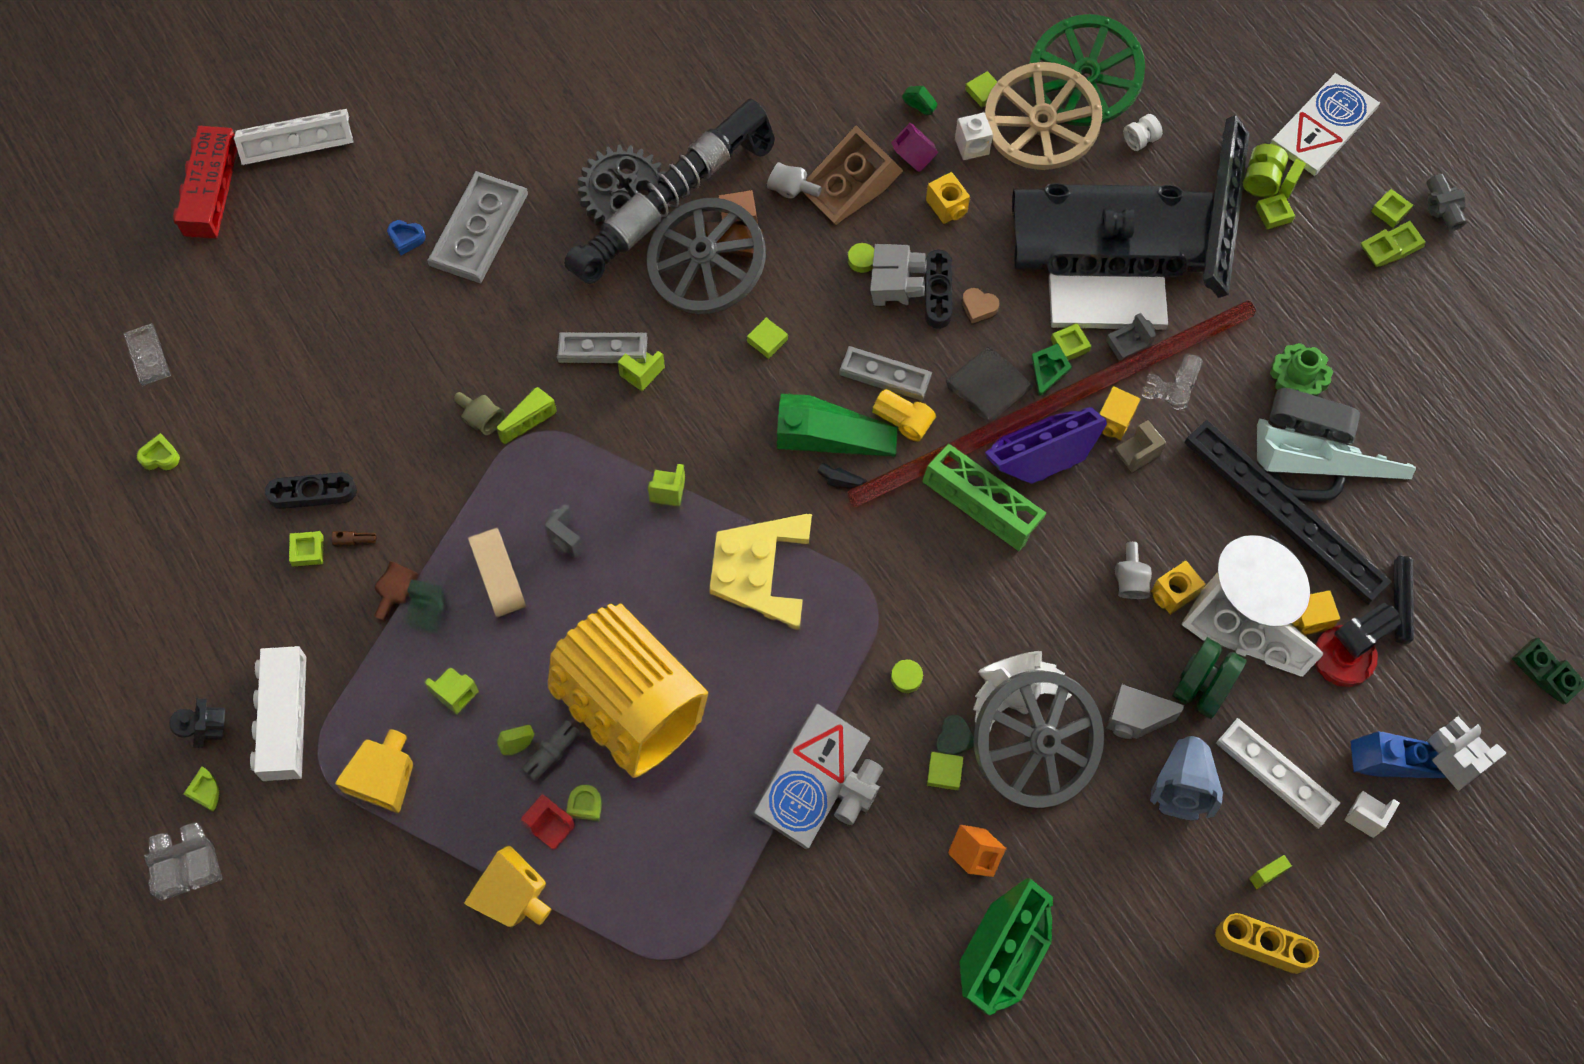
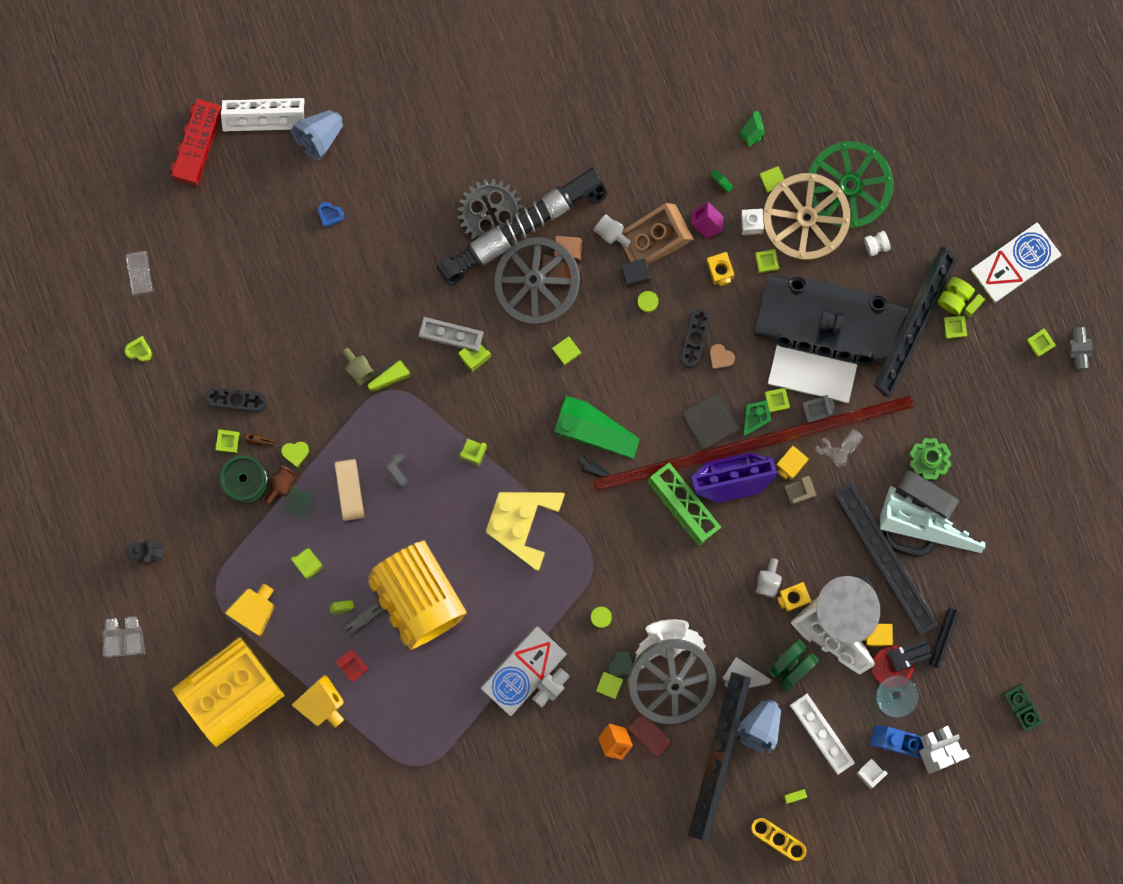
camera: 15 degrees right, 15 degrees up
(204, 789) = (141, 593): lime tile -> none
(279, 714) = (196, 554): white brick -> none
(336, 590) = (246, 491): none -> dark green wheel
(357, 902) = (227, 692): none -> yellow piece
(369, 139) = (317, 133): none -> sand blue cone
(409, 543) = (295, 452): none -> lime tile
(477, 227) = (382, 217): light grey tile -> none
(584, 803) = (377, 657): lime tile -> none
(836, 224) = (635, 273): none -> black panel
(885, 373) = (642, 395): light grey tile -> none
(893, 272) = (665, 323): light grey hips -> none
(910, 418) = (649, 435): yellow piece -> none
(942, 38) = (753, 129): none -> green piece
(1004, 181) = (766, 261): none -> lime tile
(1007, 948) = (616, 807): green wedge -> none
(1024, 830) = (649, 735): none -> clear red tile
(1142, 837) = (719, 756): none -> black plate
(1382, 687) = (904, 704): none -> clear light blue dish
(1393, 245) = (1030, 373): lime slope -> none

